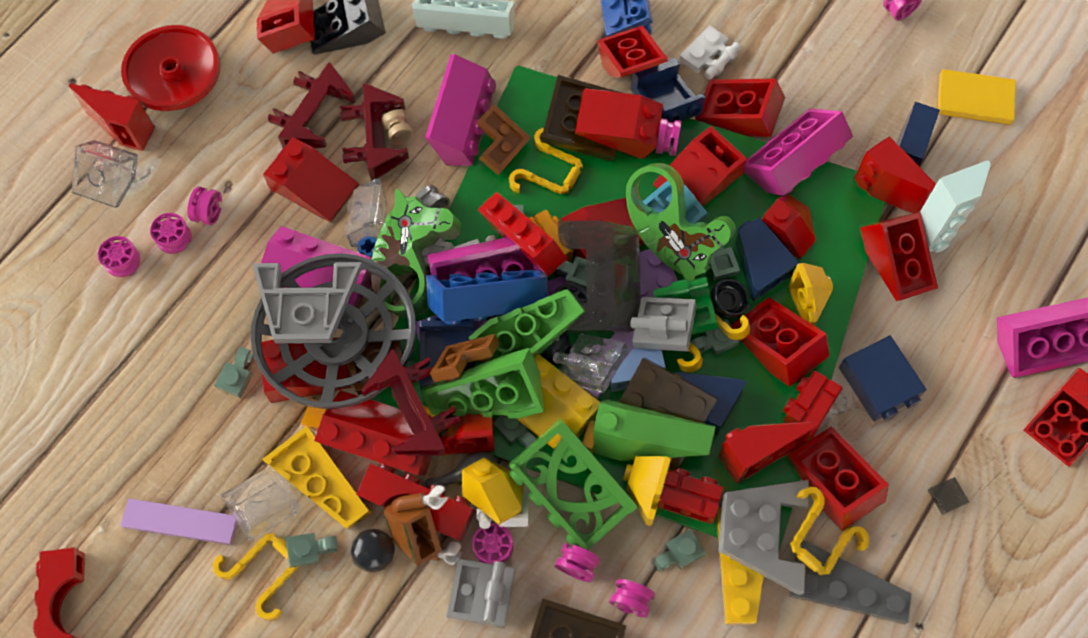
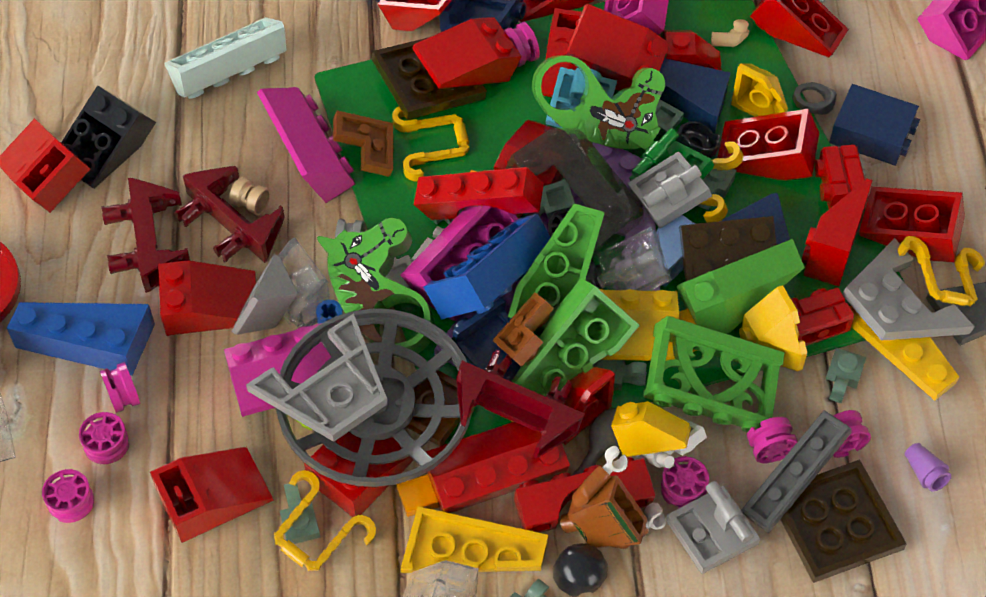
camera: 40 degrees left, 10 degrees down
(196, 315) = (209, 490): none -> red slope
(210, 401) = (295, 552): none -> yellow piece
(220, 155) = (84, 332): none -> blue wedge
(334, 210) = (267, 299): none -> light grey slope
(568, 599) = (796, 471): none -> dark grey tile
(725, 186) = (615, 45): none -> red slope
(837, 235) = (733, 37): none -> tan arm
(855, 337) = (820, 108): none -> dark grey piece

